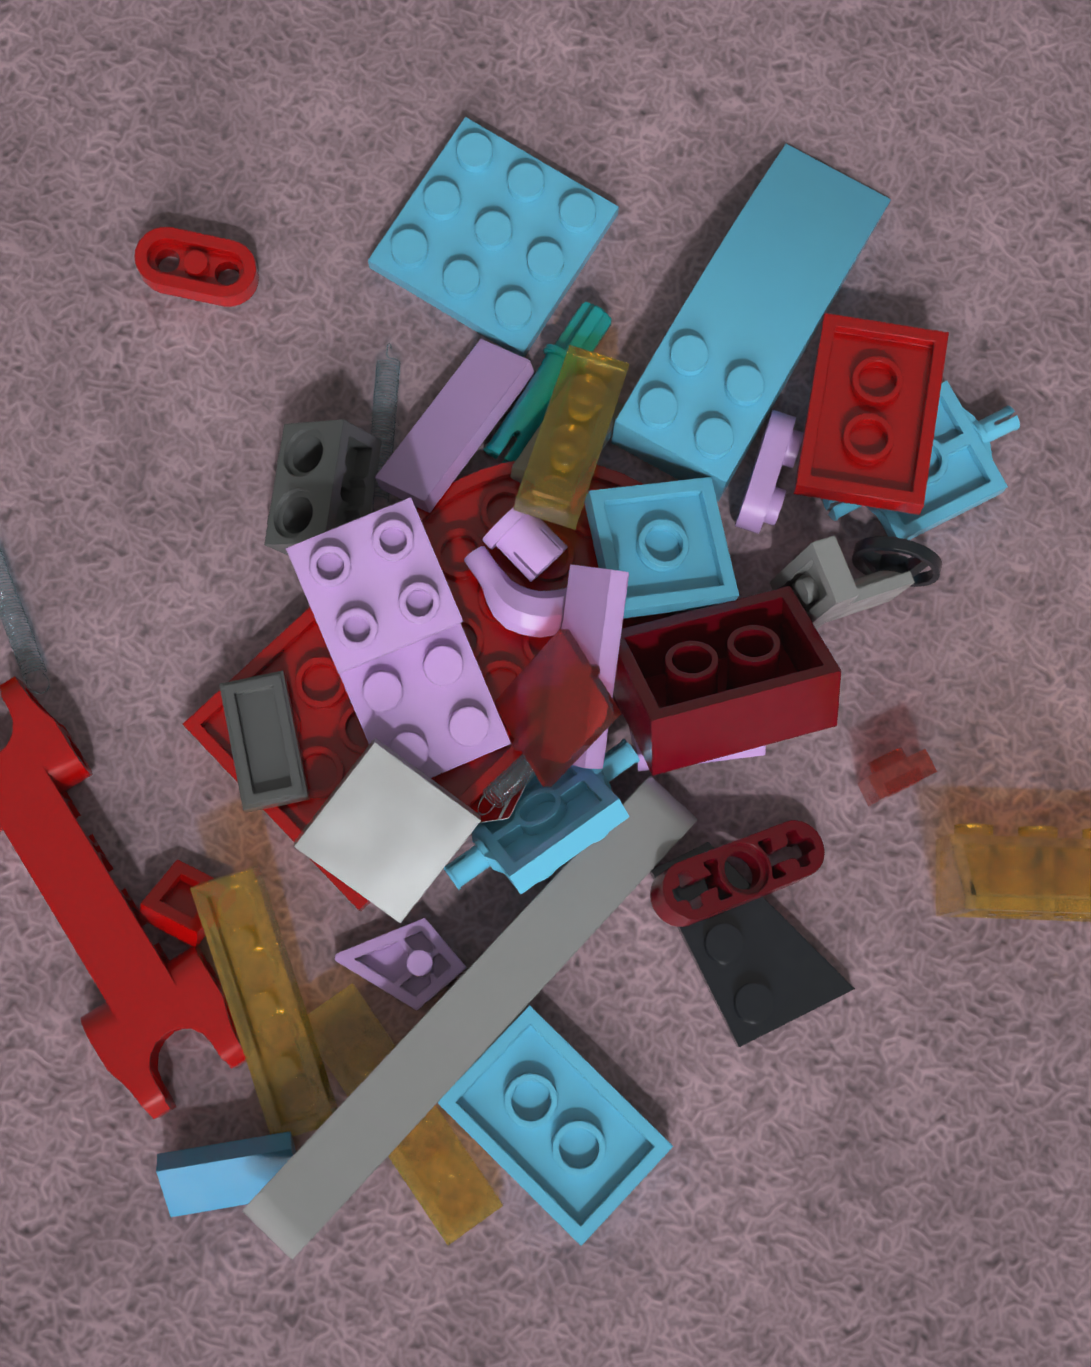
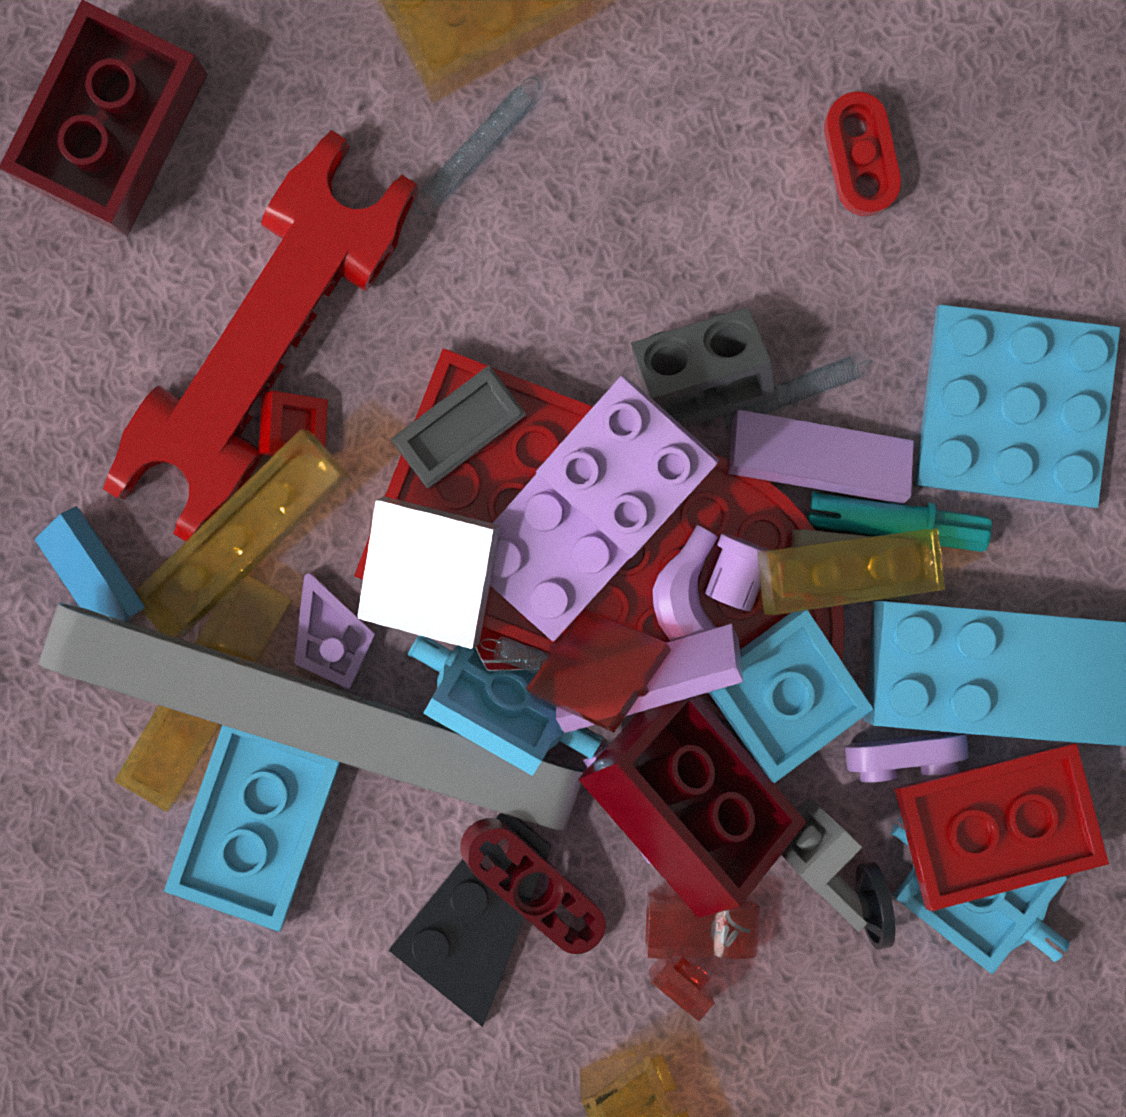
camera: 70 degrees right, 10 degrees up
(840, 753) = (677, 931): none -> clear red leg

